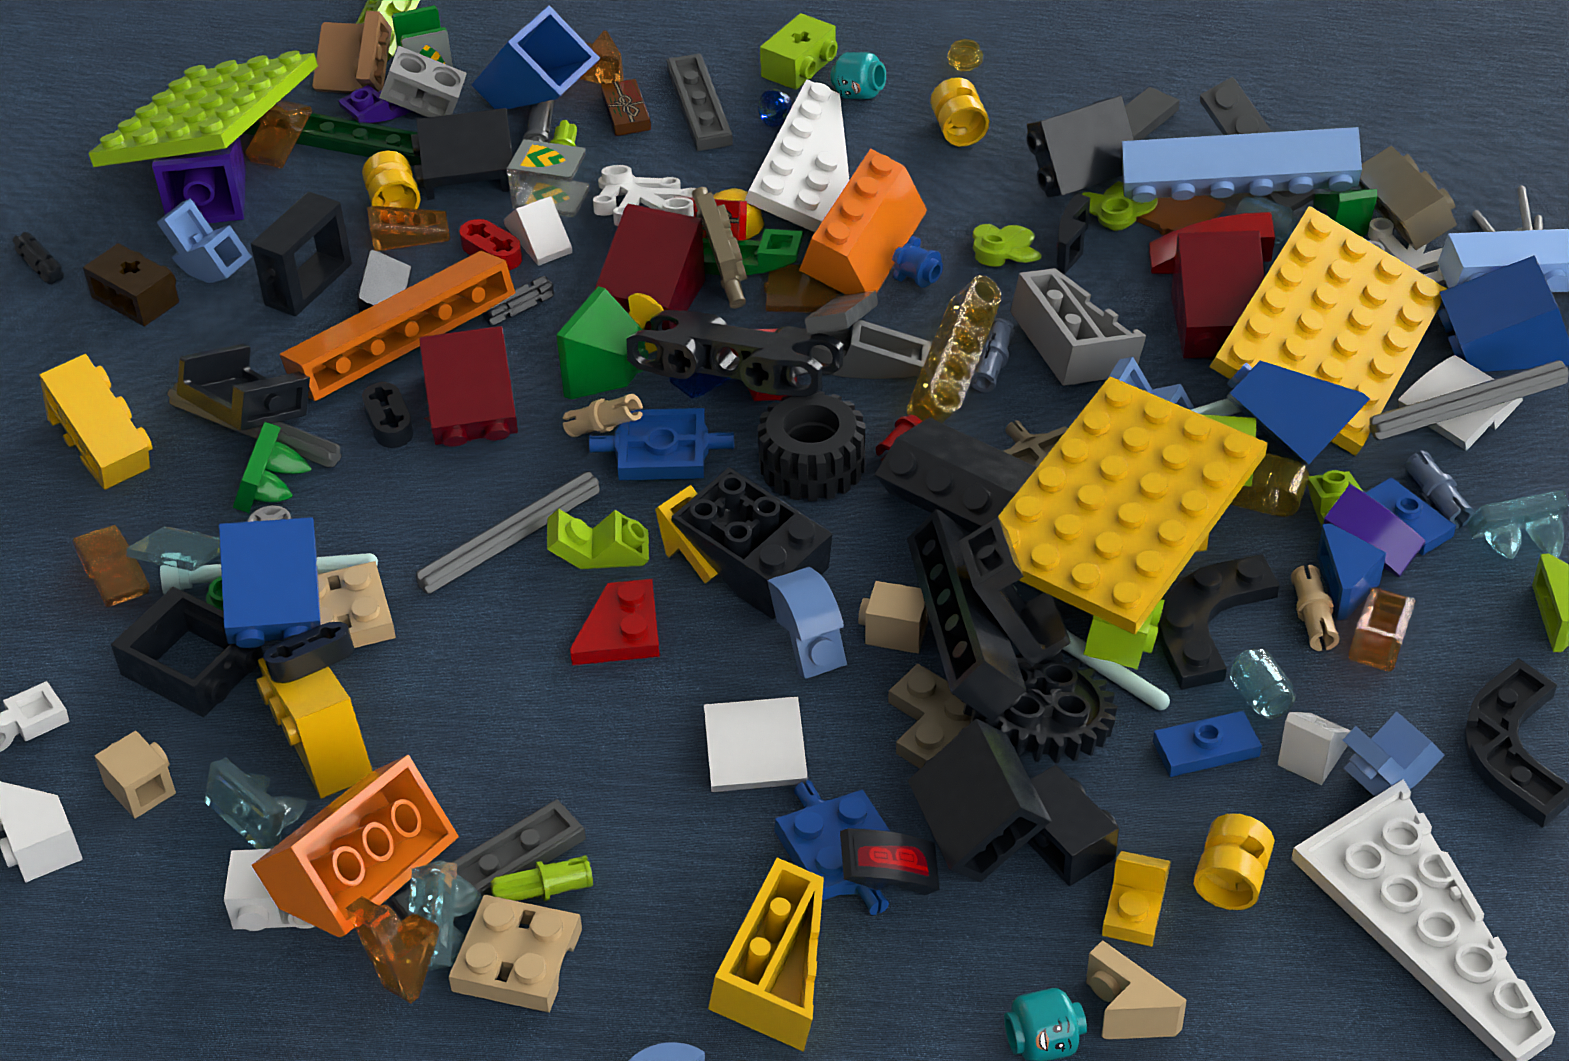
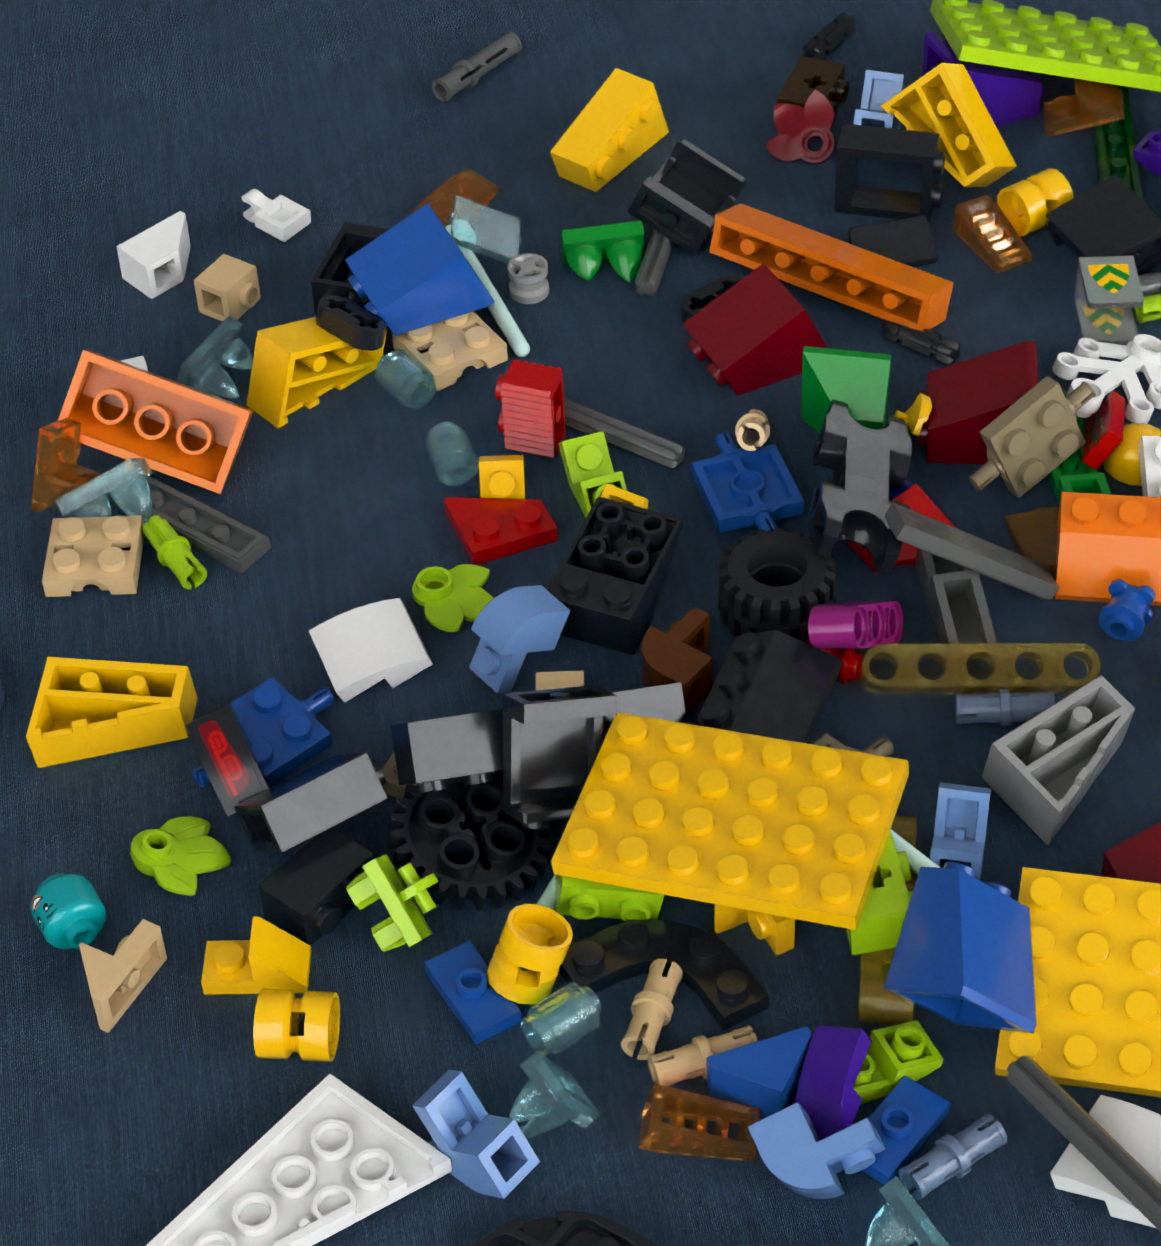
camera: 75 degrees right, 0 degrees up
(178, 299) = (800, 127): none -> dark red plate
(263, 189) = (950, 105): none -> yellow wedge
(378, 650) = (405, 379): none -> clear light blue brick
(487, 237) = (990, 295): red beam -> none
(501, 549) = (532, 408): none -> red brick
(512, 633) = (451, 454): none -> clear light blue brick
(539, 231) = (1032, 319): white slope -> none
(570, 601) = (502, 477): none -> yellow plate
(707, 672) = (452, 594): none -> lime plate
(870, 536) = (680, 657): none -> reddish brown brick
(898, 396) = (855, 624): none -> magenta beam
(978, 935) = (178, 853): none -> lime plate
(1116, 759) = (383, 882): none -> lime hips
(1201, 680) = (529, 953): none -> yellow wheel
(1260, 626) = (652, 1009): none -> tan pin
(1311, 745) = (488, 1066): white slope -> none
(1365, 689) = (550, 1098): none -> clear light blue tile
(1441, 555) = (805, 1162): none -> medium blue brick

